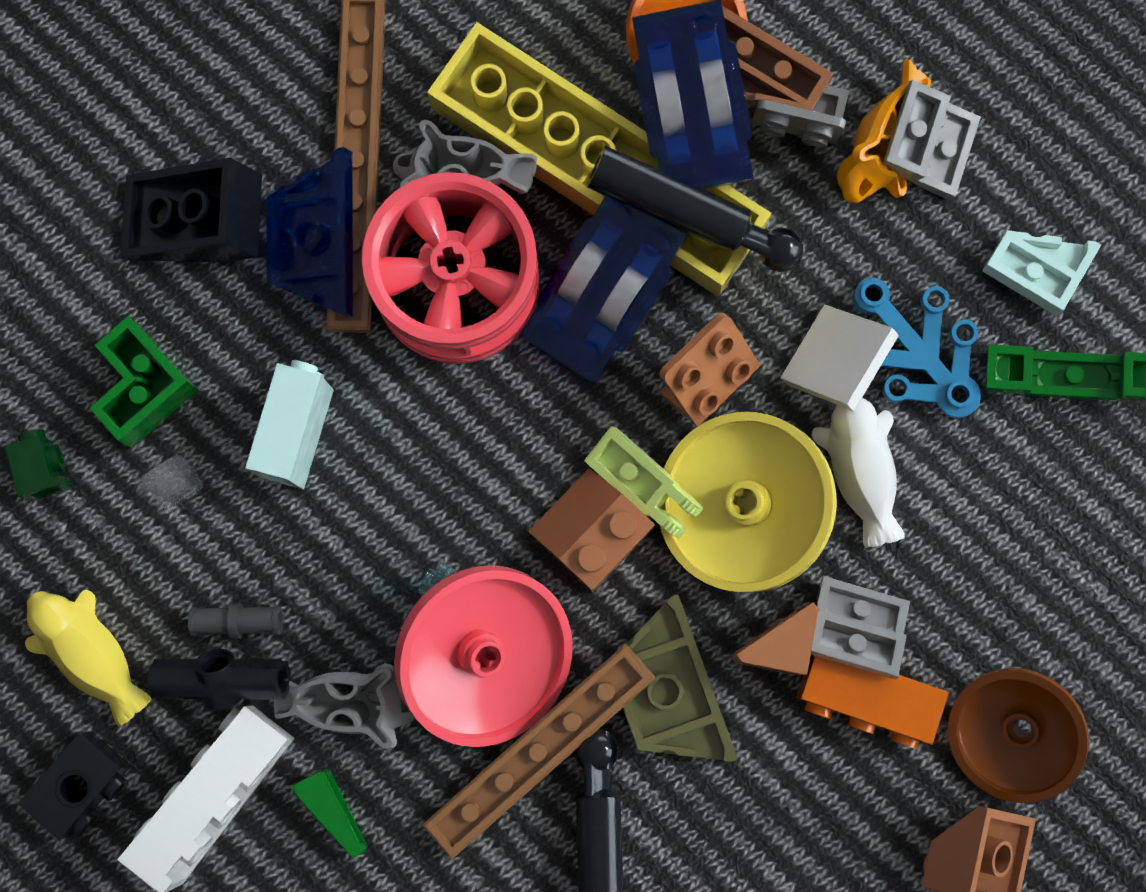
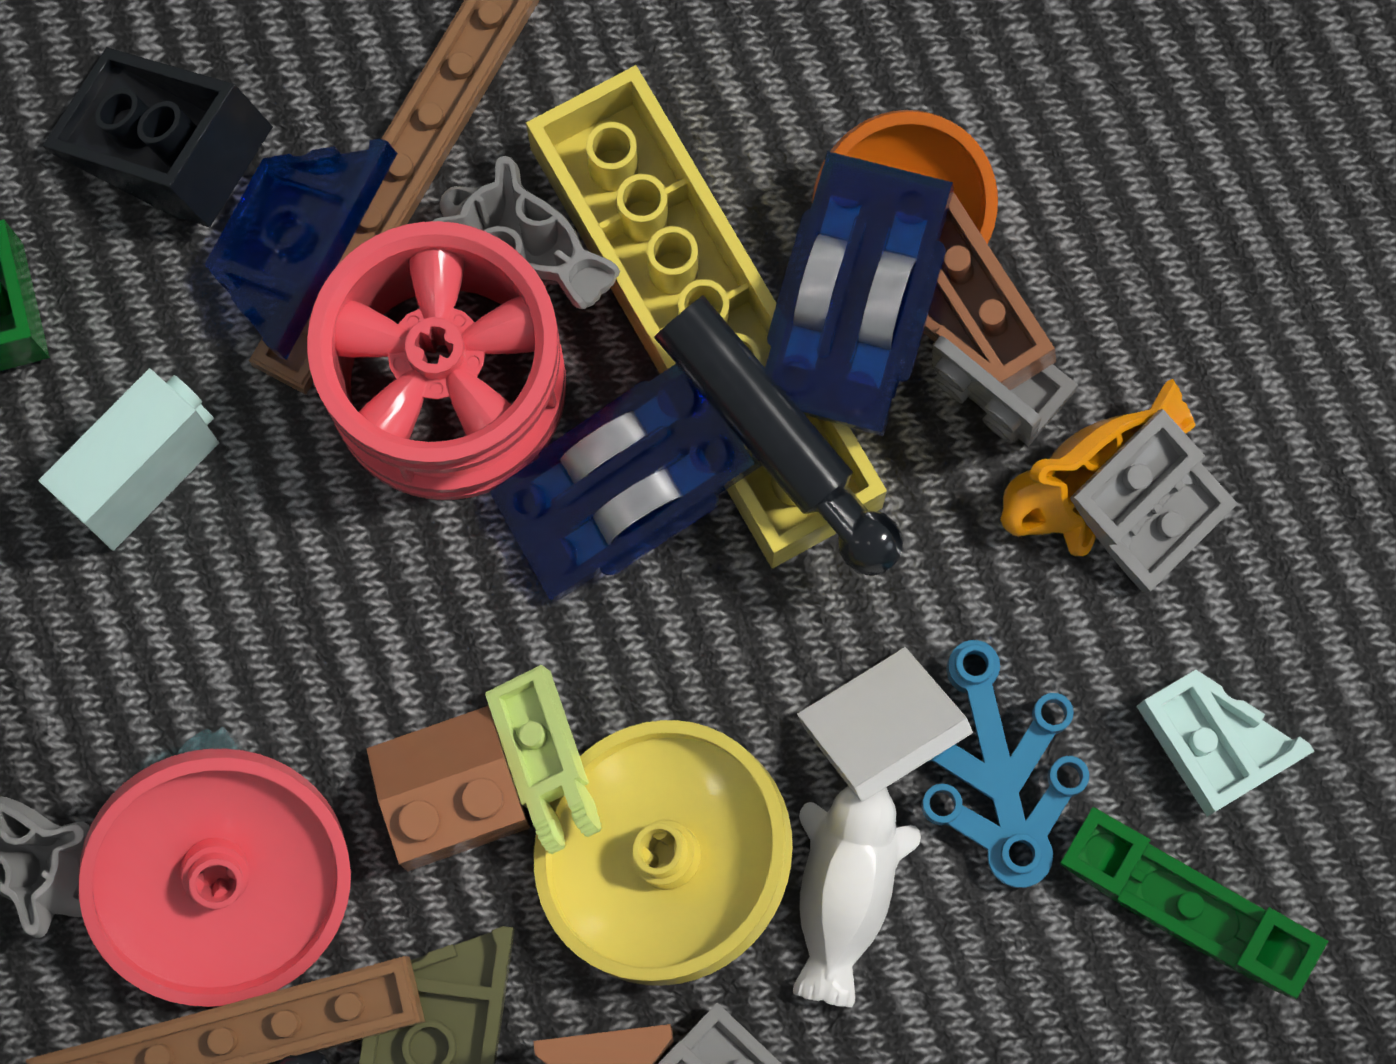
camera: 25 degrees right, 5 degrees down
(707, 369) = (699, 651): nougat bracket -> none

